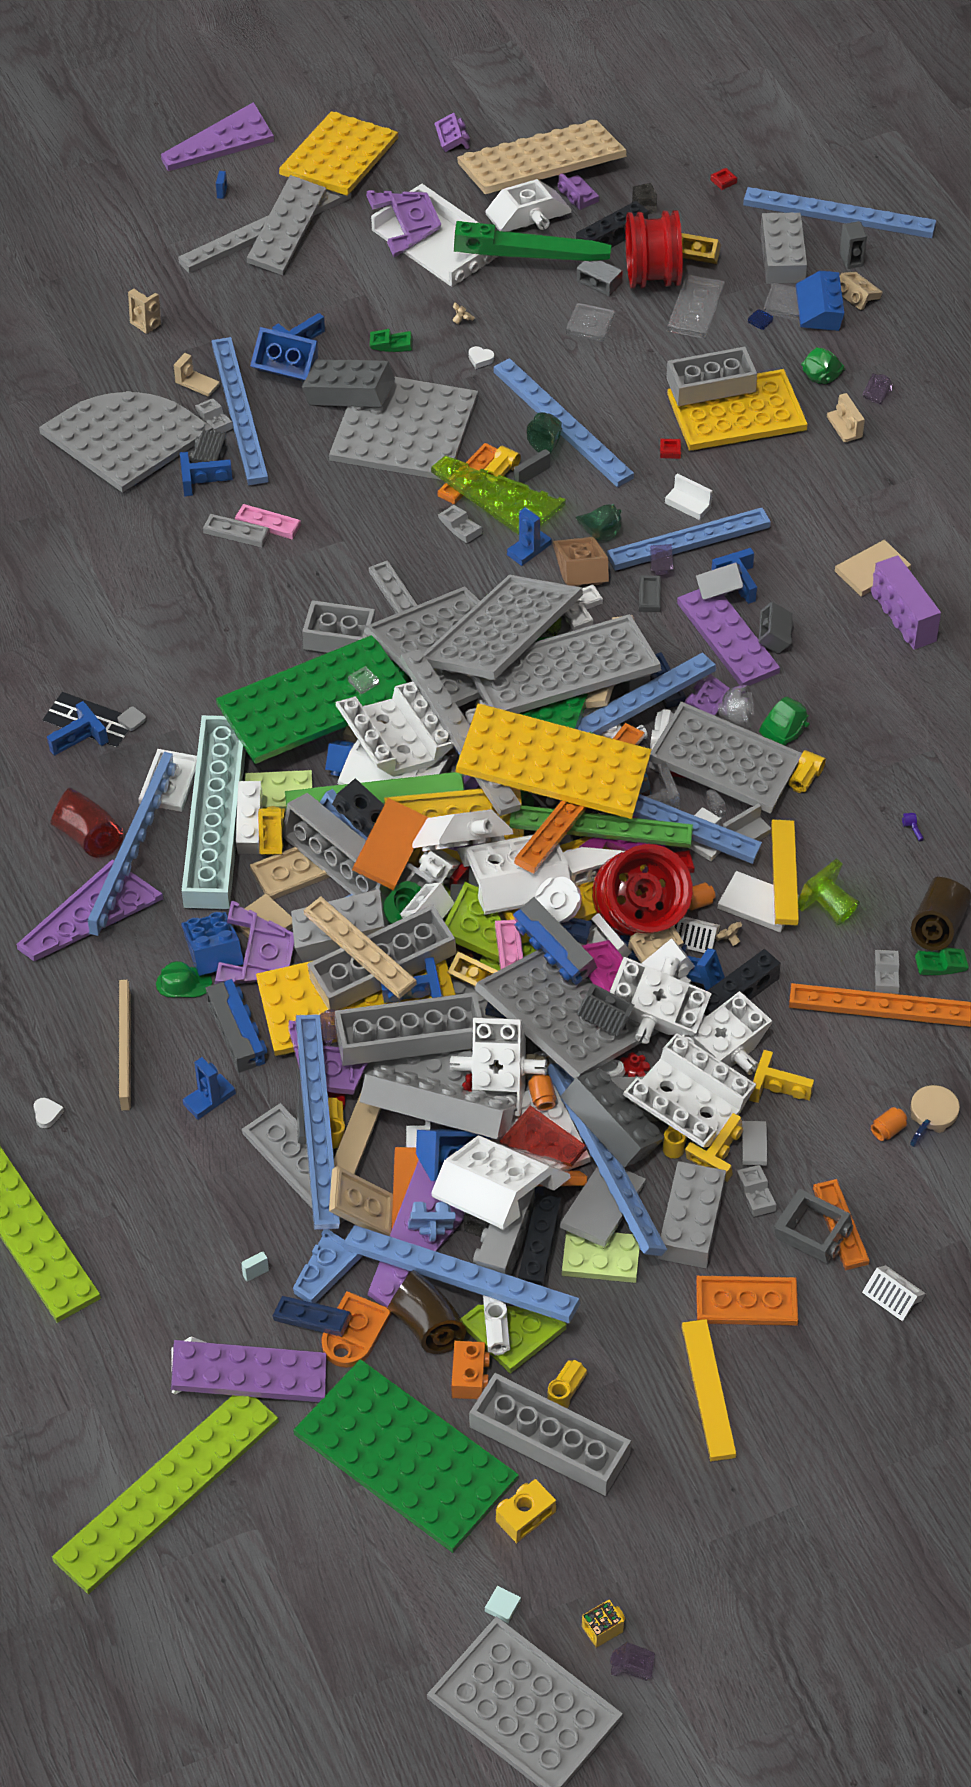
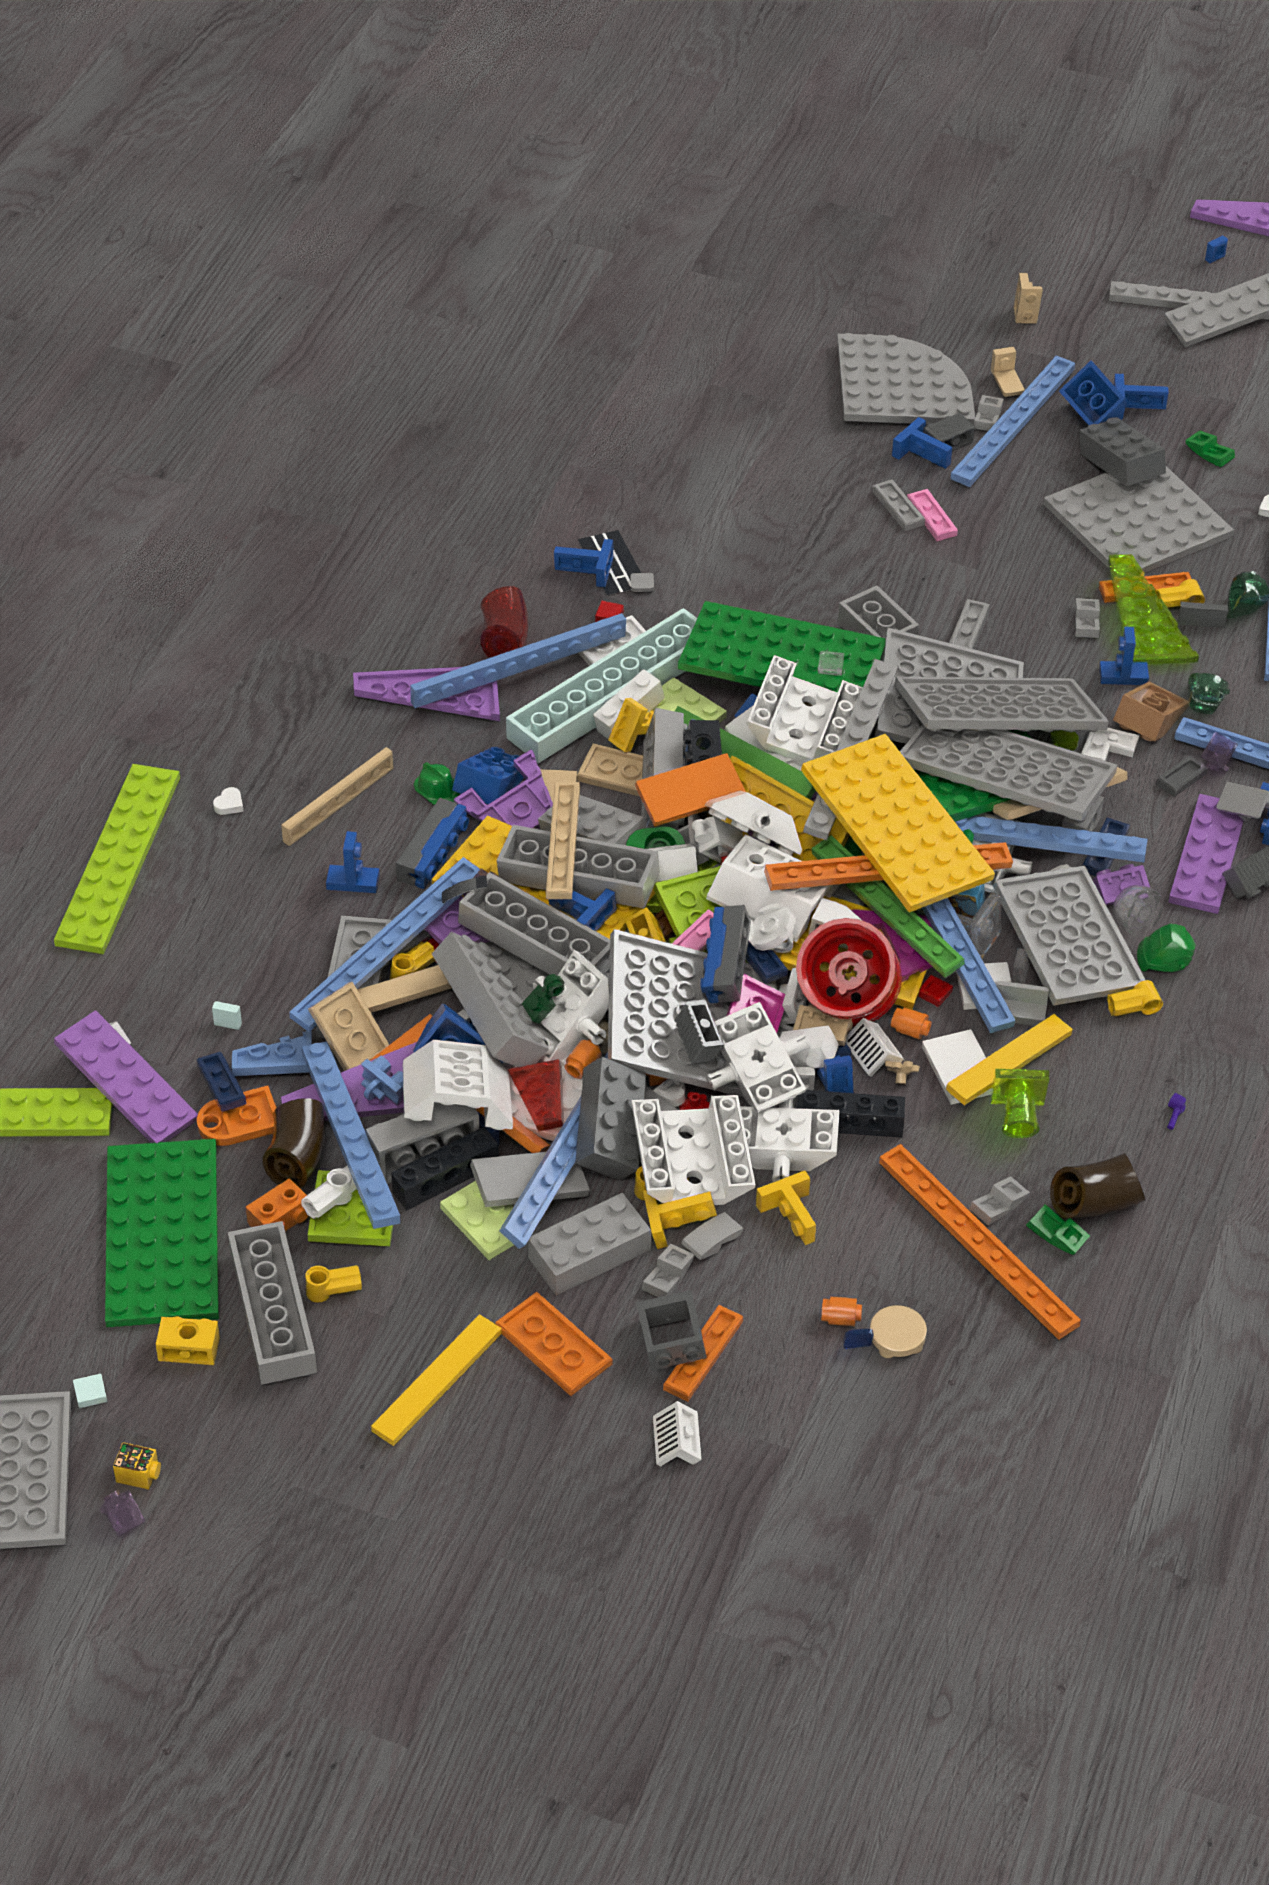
camera: 45 degrees right, 5 degrees down
(138, 759) = (608, 610): none -> red tile
(330, 1036) = (463, 887): none -> black sticker
(477, 1075) = (539, 1001): none -> dark green plate

